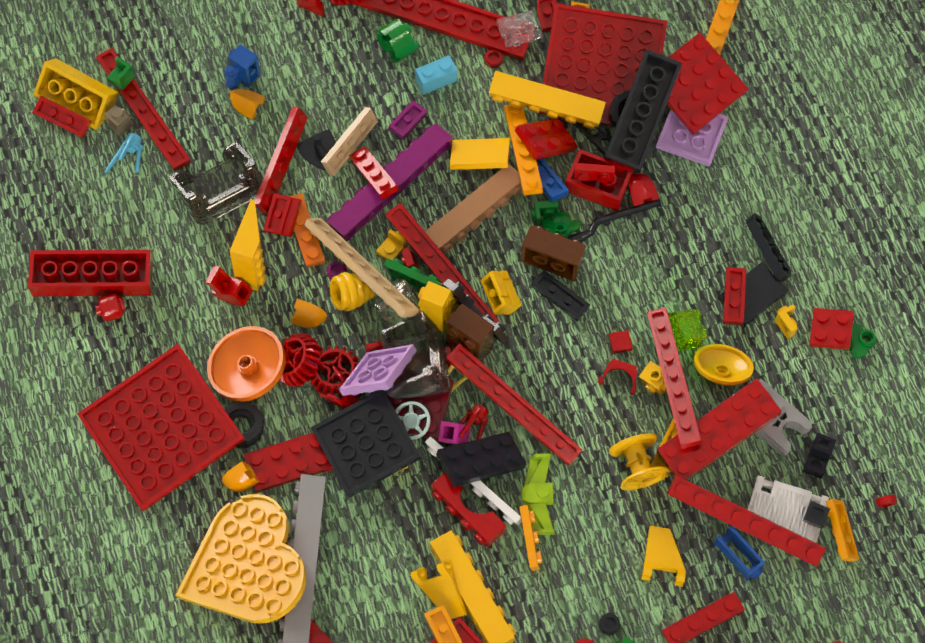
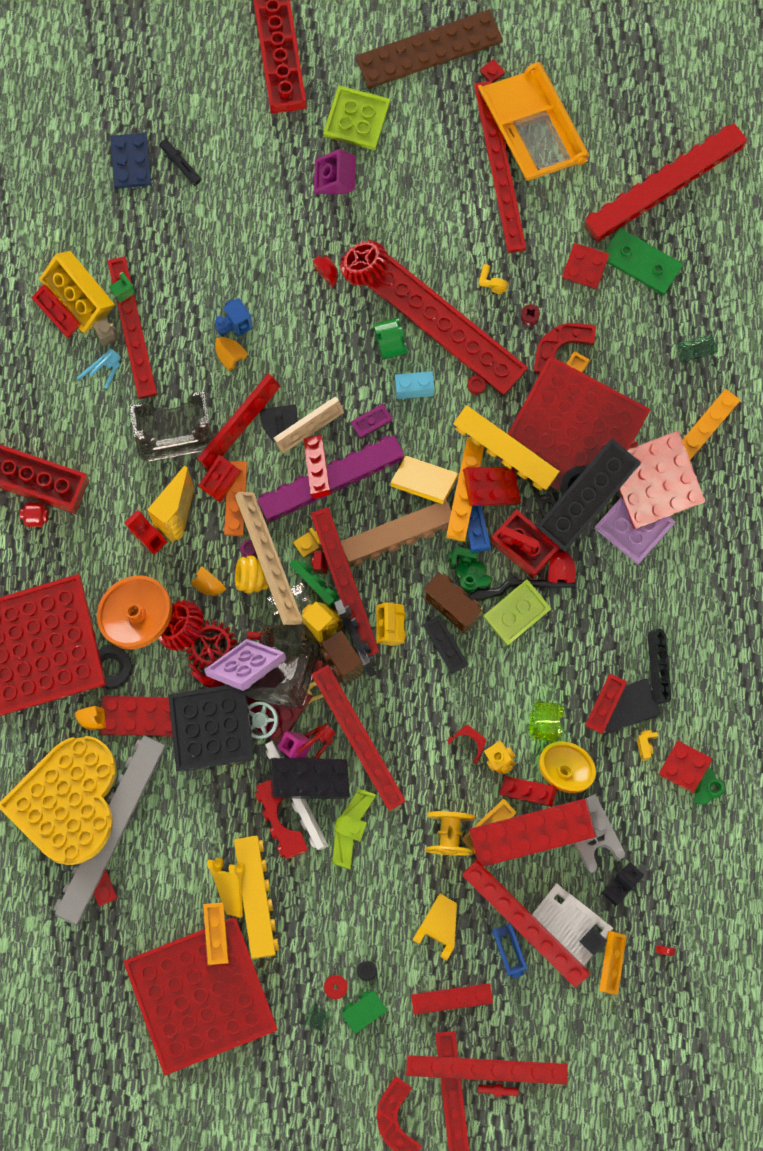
camera: 25 degrees right, 10 degrees up
(518, 24) = (510, 360): clear plate -> none
(531, 537) = (326, 867): light orange plate -> none
(616, 243) = (516, 612): none -> lime plate
(620, 342) = (483, 709): red tile -> none
(674, 378) = (511, 767): plate -> none
(705, 396) = (528, 791): none -> red plate

